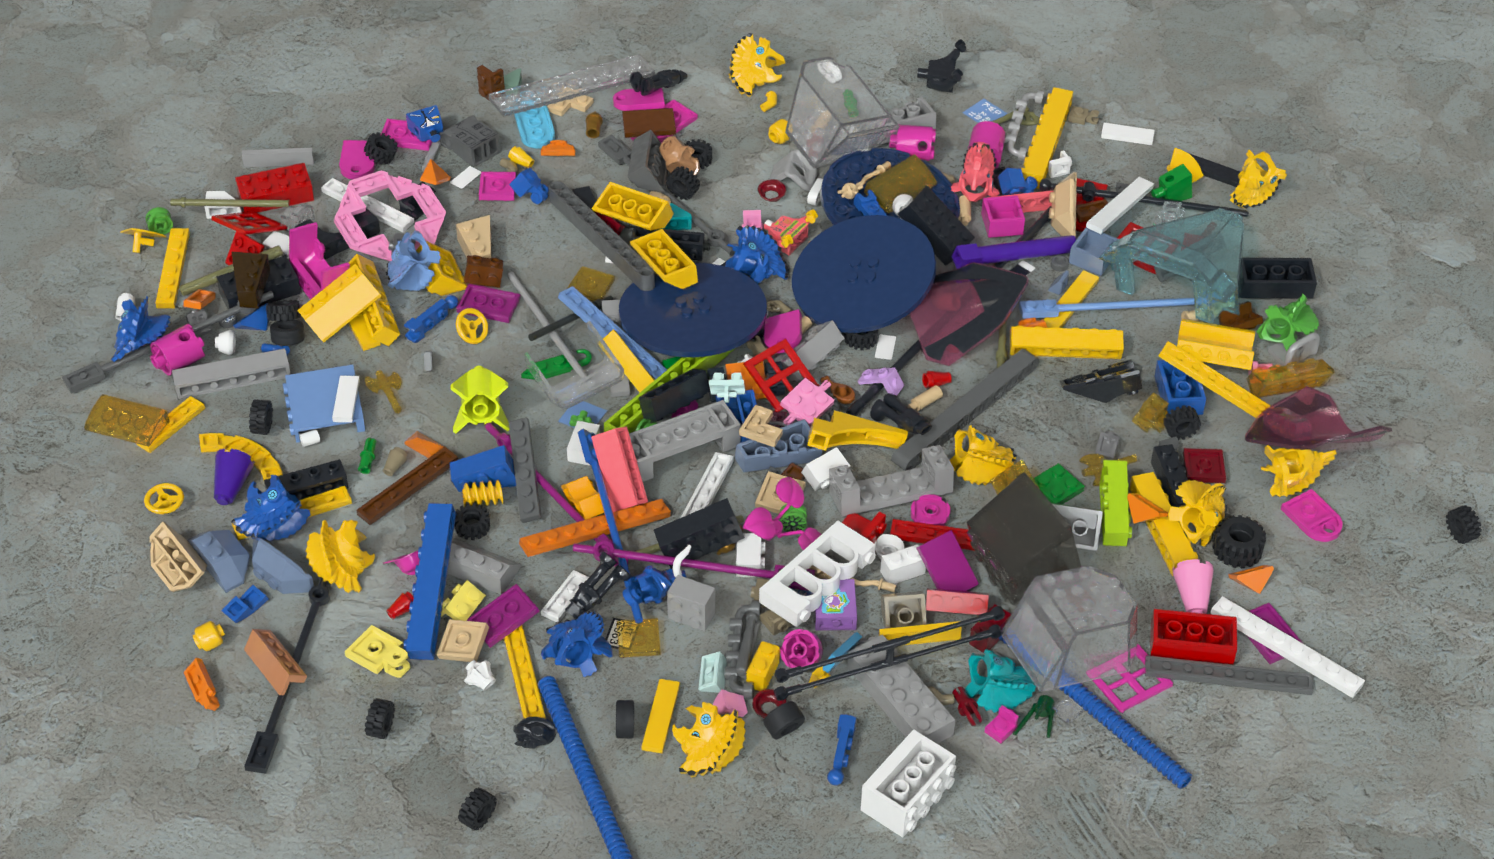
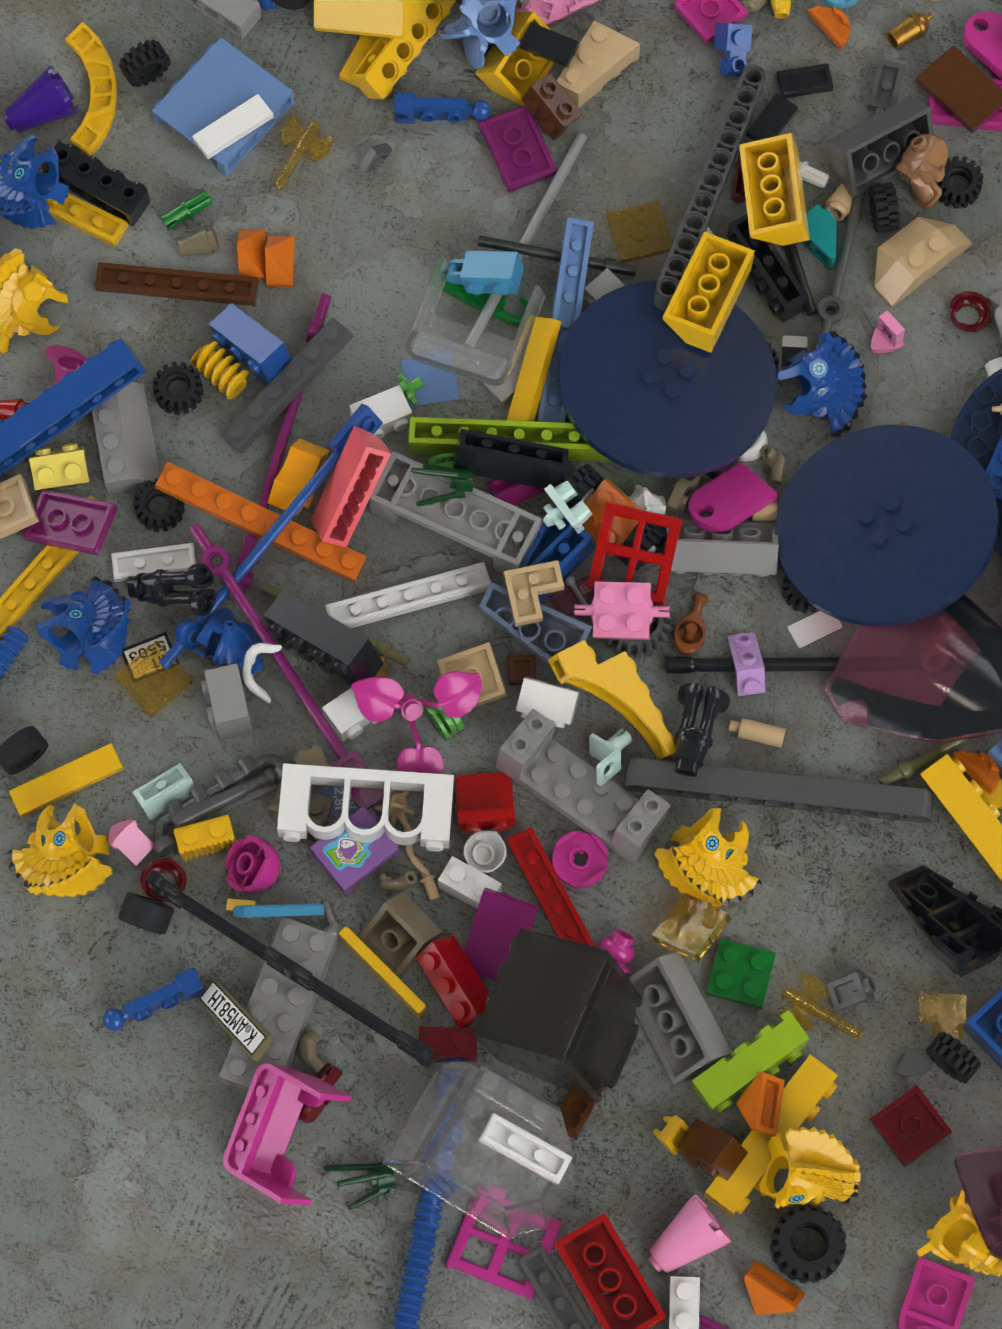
camera: 55 degrees right, 25 degrees up
(309, 438) = (164, 132): white hinge -> none
(443, 436) = (279, 261): none -> orange slope
(452, 244) = (549, 44): none -> black tile
(468, 328) = (457, 152): yellow piece -> none
(480, 398) = (345, 259): neon yellow brick -> none
(538, 579) = (154, 520): none -> black tyre
(553, 344) = (487, 272): none -> dark azure brick
(577, 176) = (804, 81): none -> black tile
(666, 416) = (460, 480): none -> dark green plant
(720, 193) = (915, 256): none -> tan wedge
(790, 231) = (906, 384): coral torso -> none
(873, 595) = (399, 884): none -> dark tan arm
(879, 462) = (608, 753): none -> light aqua bracket
(893, 707) = (236, 1020): none -> tile
(908, 783) = (146, 1086): white brick -> none
(934, 378) = (800, 722): red cone -> none
(966, 731) = (266, 1126): none -> dark pink windscreen
(1002, 686) = (375, 1107): teal piece -> none
(1002, 725) = (322, 1148): dark pink bracket -> none
(1102, 587) = (525, 1148): none -> white tile
(1127, 563) = (672, 1133): none -> yellow tile
(1152, 546) = (711, 1150): none -> reddish brown brick
(1169, 471) = (858, 1097): black brick -> none

